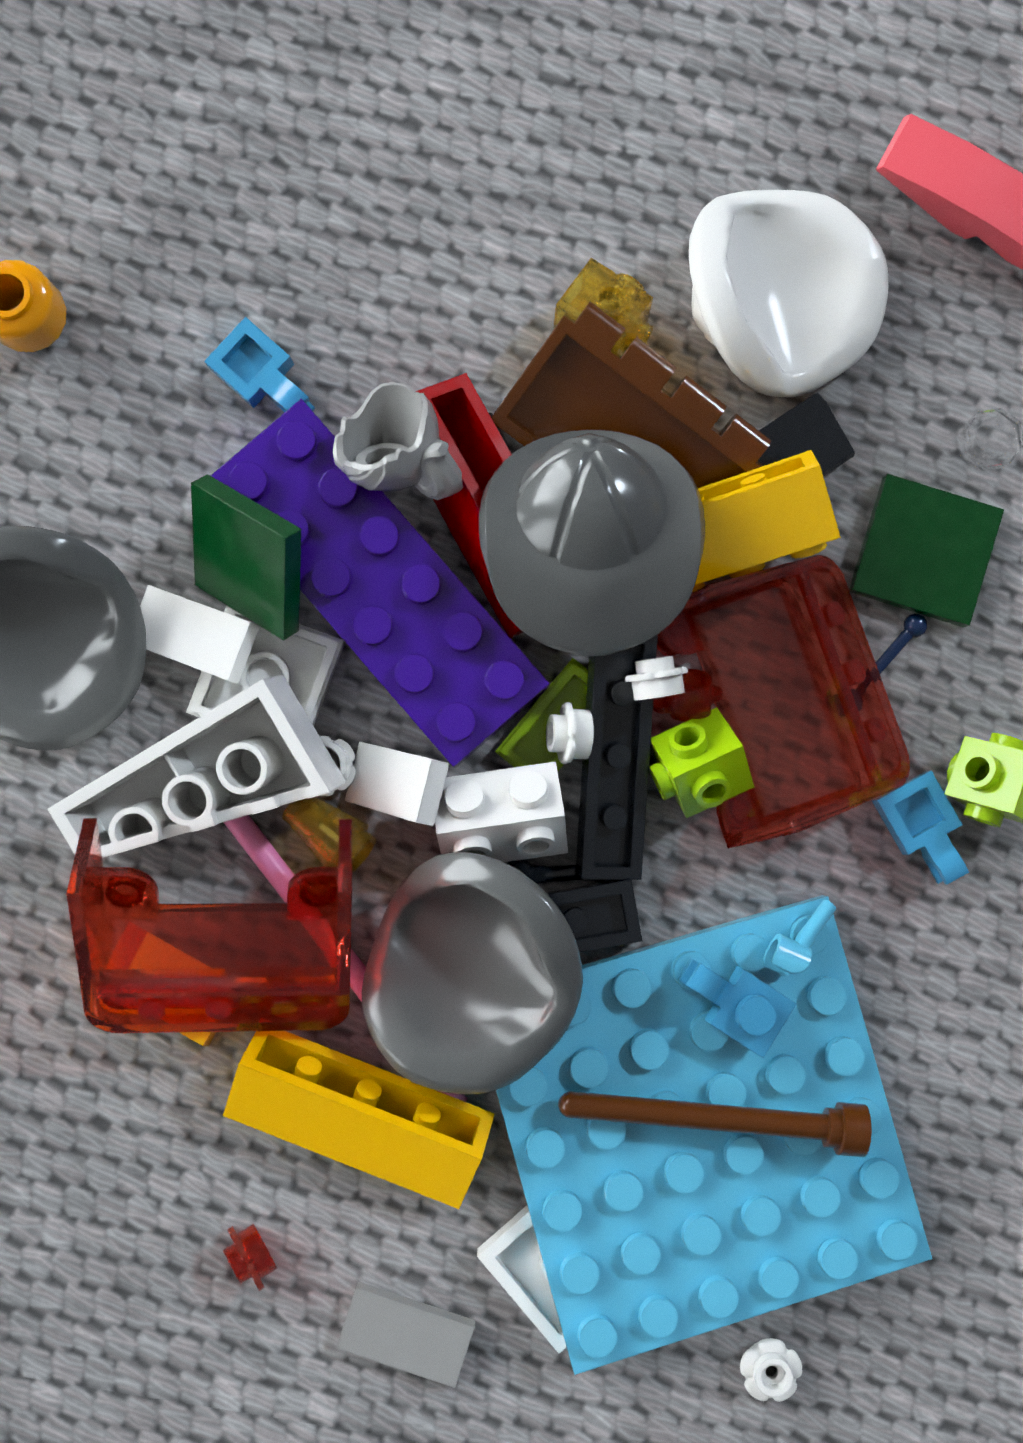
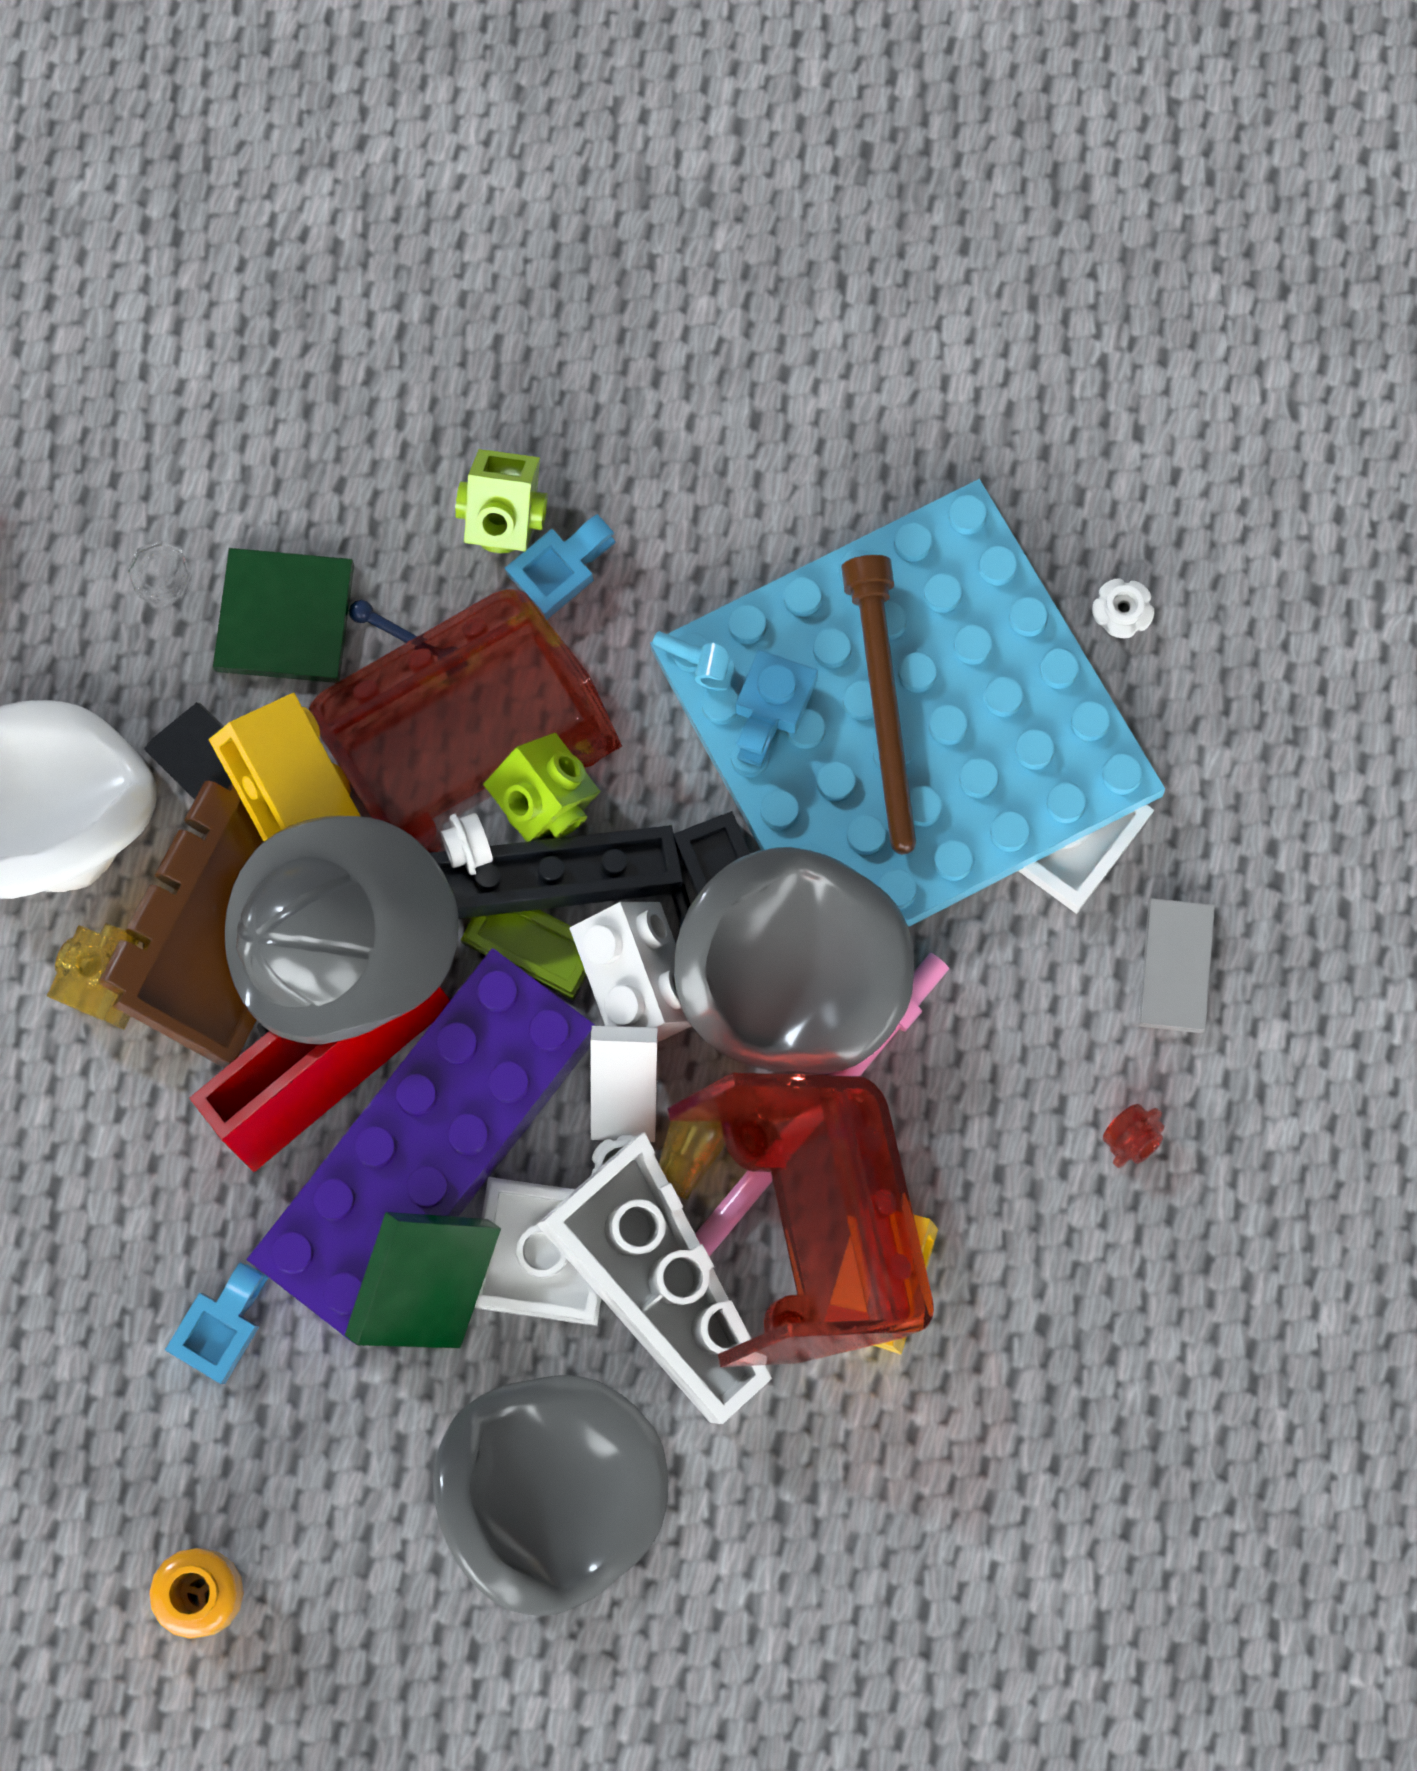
camera: 100 degrees left, 10 degrees down
(197, 634) = (512, 1326): white tile -> none
(359, 1115) = (965, 1051): yellow brick -> none
(396, 445) = (278, 1143): light grey hair -> none
(570, 733) = (538, 920): white plate -> none
(695, 701) = (484, 804): clear red plate -> none

